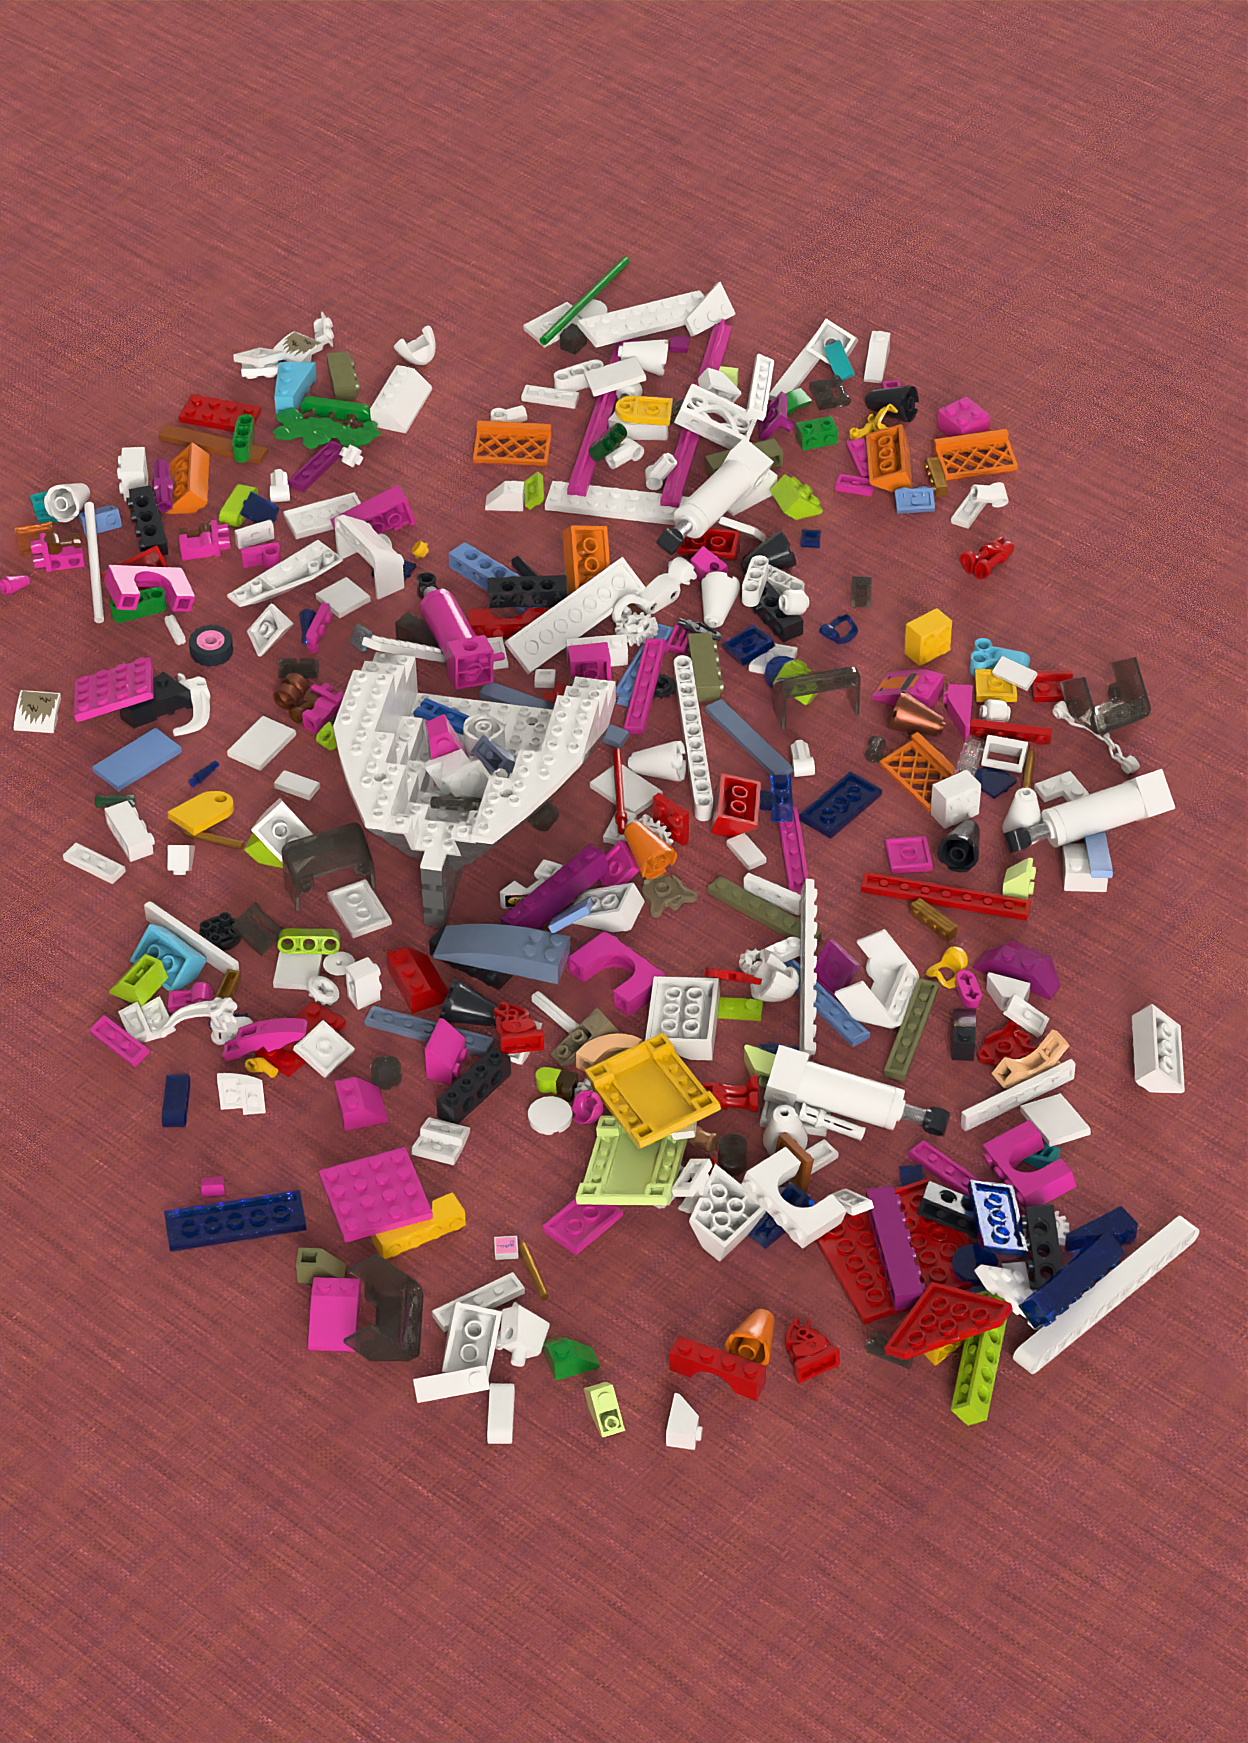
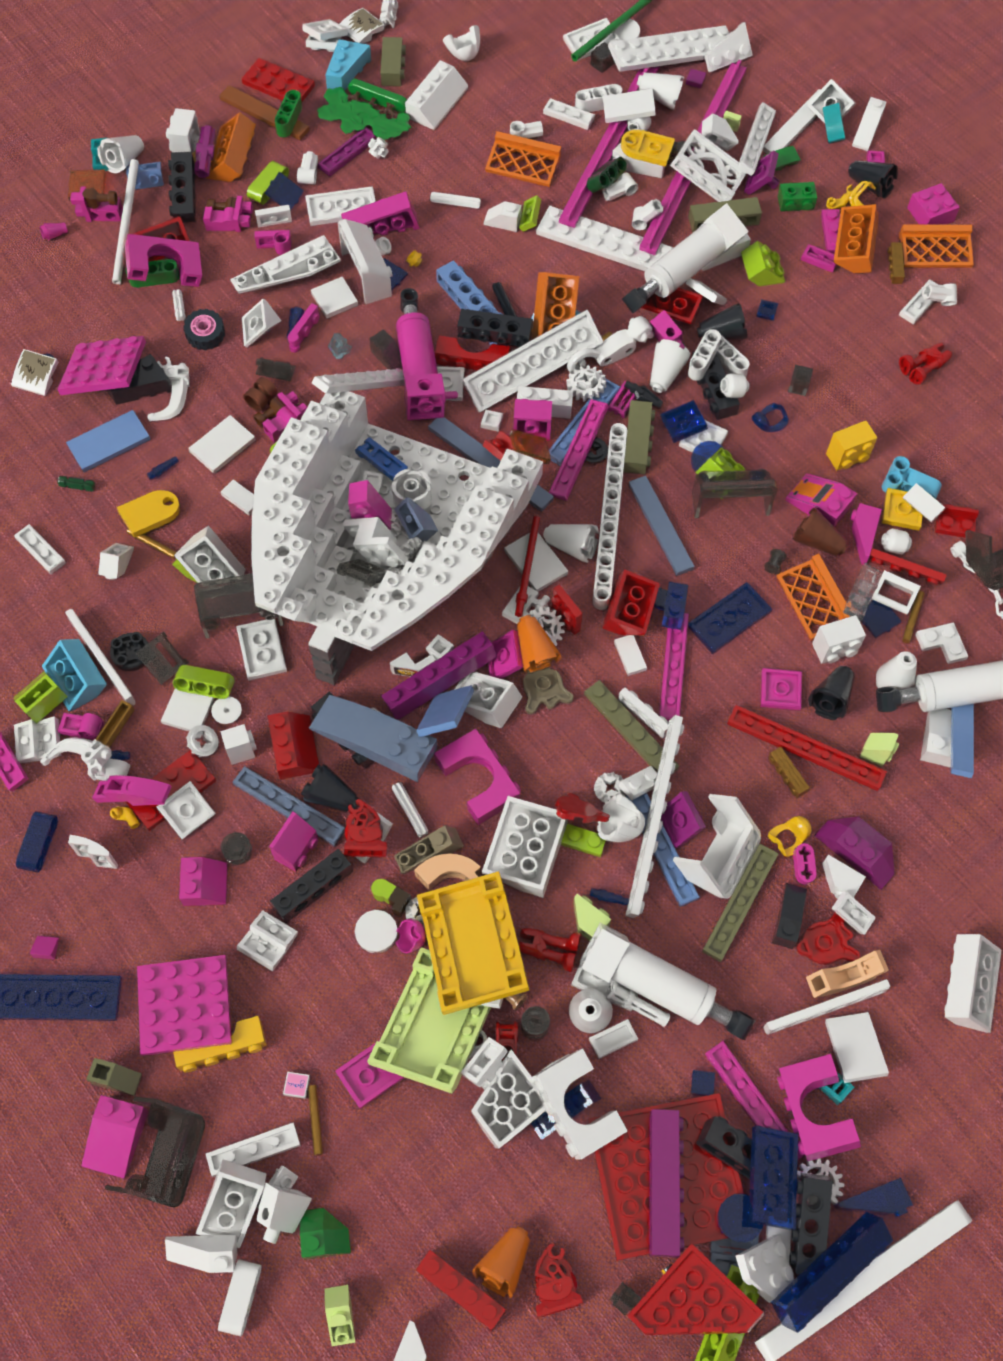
camera: 10 degrees right, 20 degrees up
(129, 831) = (78, 521): white brick -> none
(449, 491) = (456, 200): none -> white axle
(801, 760) = (704, 561): white piece -> none
(803, 1174) = (587, 1040): dark orange plate -> none
(824, 396) = (812, 154): clear smoke plate -> none
(852, 1201) = (634, 1114): white tile -> none
(914, 500) = (870, 286): medium blue bracket -> none

